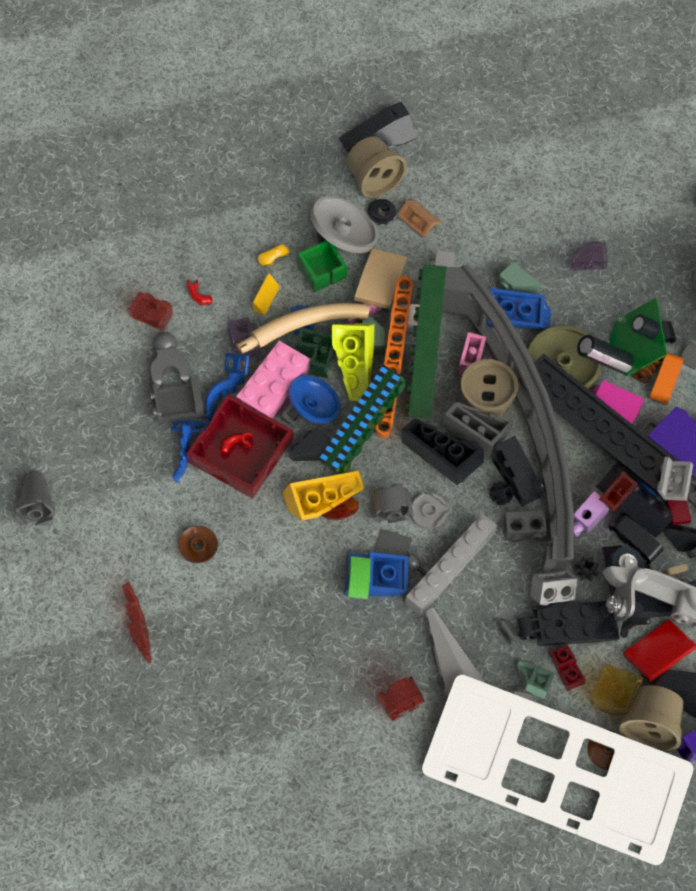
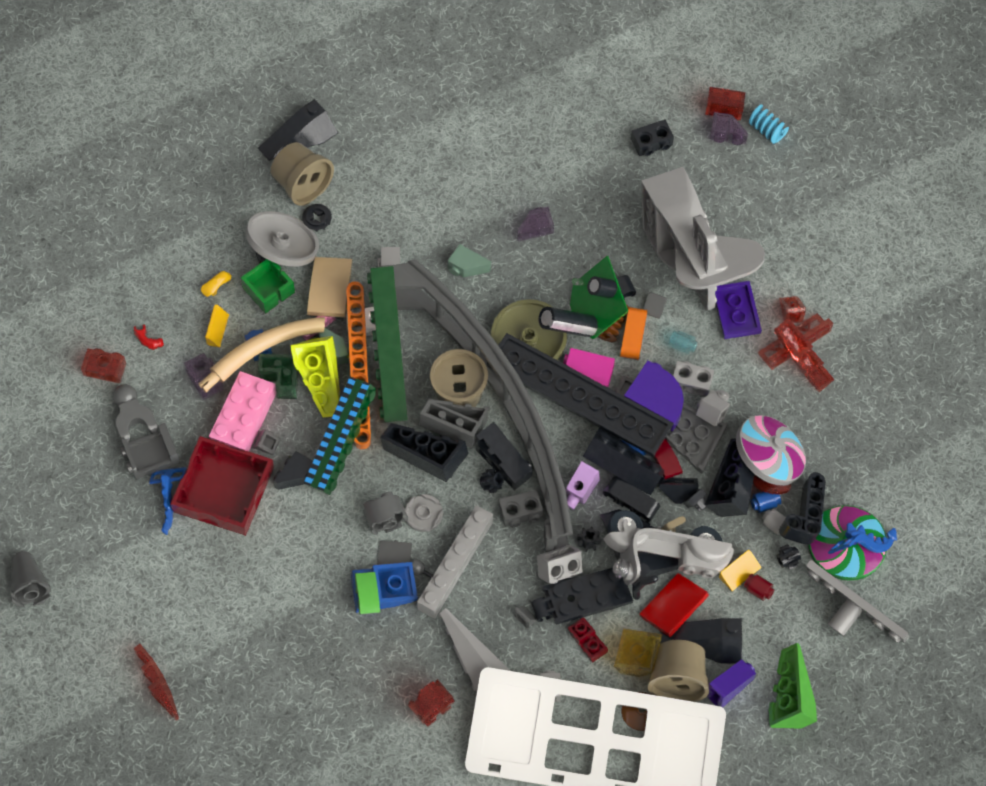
camera: 10 degrees left, 0 degrees up
(194, 536) = (201, 583): reddish brown dish -> none
(229, 383) = (202, 417): blue piece -> none
(229, 441) = (210, 483): red piece -> none
(314, 399) = (287, 423): blue dish -> none
(317, 496) = (310, 520): yellow wedge -> none
(343, 510) = (335, 528): clear red dish -> none
(418, 217) = (355, 216): medium nougat panel -> none
(472, 351) = (435, 344): bright pink brick -> none
(523, 308) = (478, 290): blue slope -> none
(534, 679) = (557, 657): sand green wing -> none
(618, 491) = (605, 457): clear red slope -> none
(675, 479) = (658, 434): light grey bracket -> none

